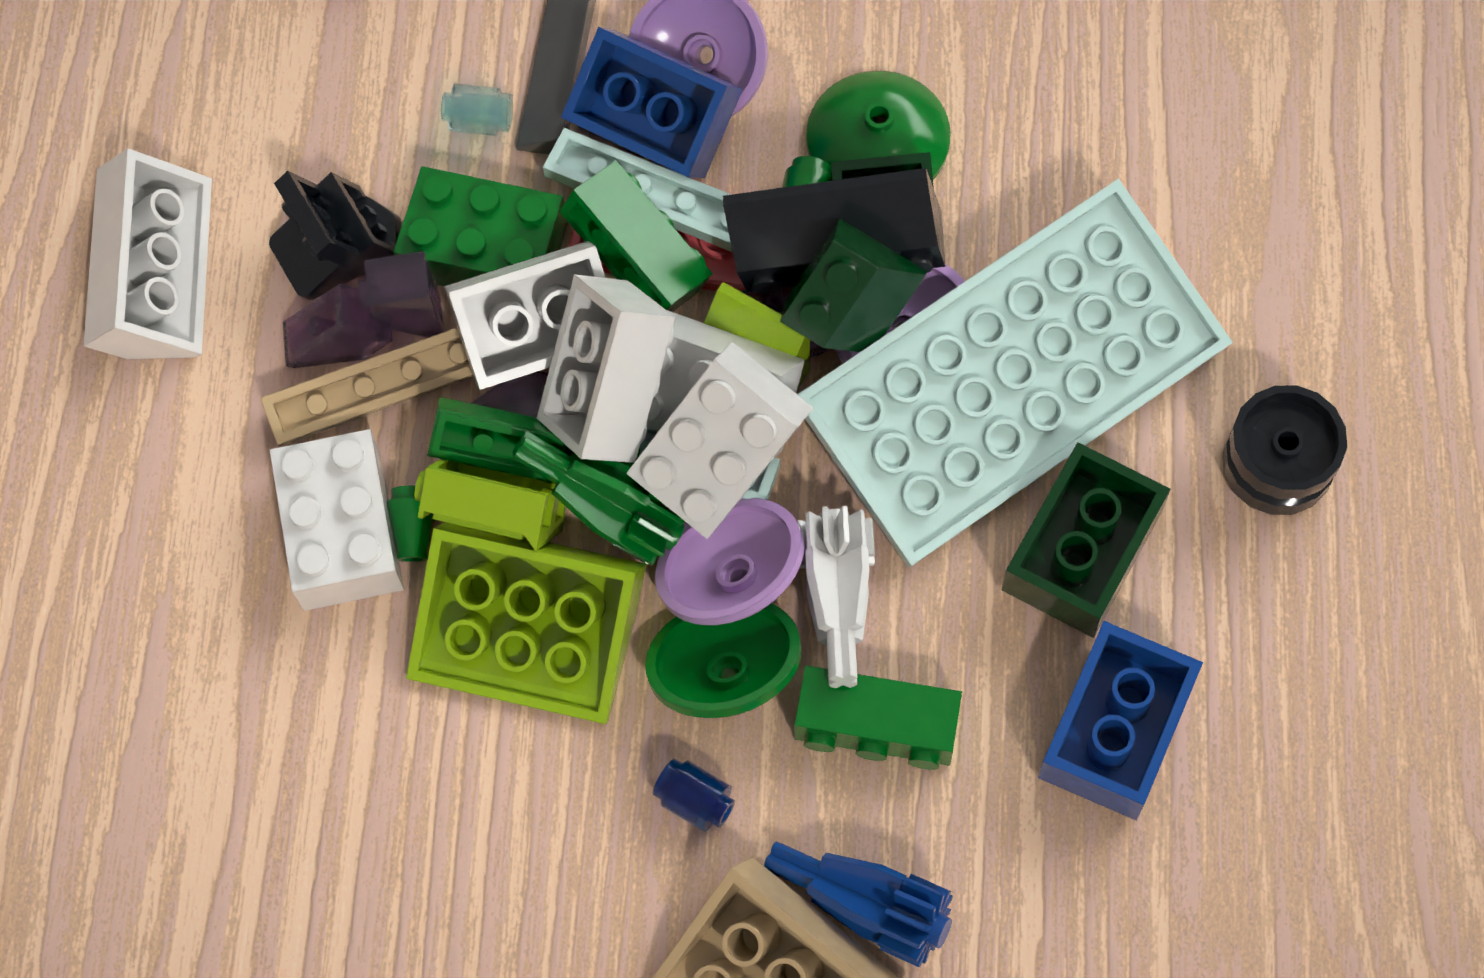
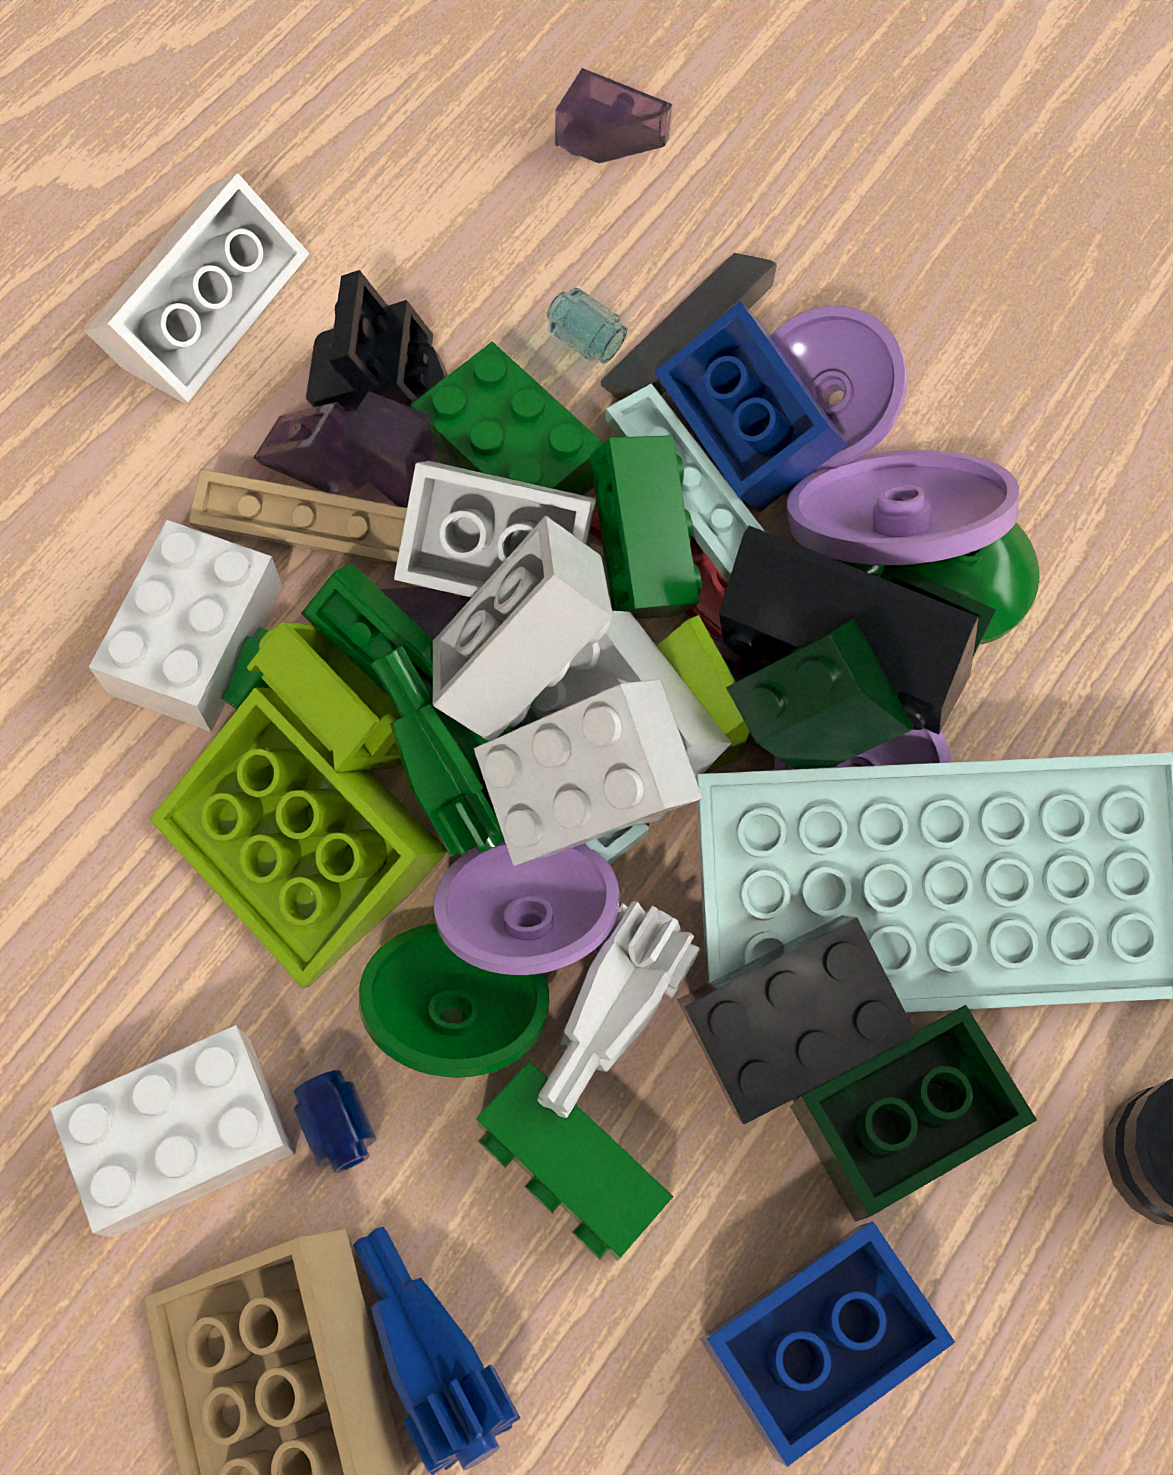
camera: 25 degrees right, 0 degrees up
(587, 869) = (171, 1132): none -> white brick
(814, 113) = (903, 507): none -> lavender dish
(968, 522) = (796, 1017): none -> black brick

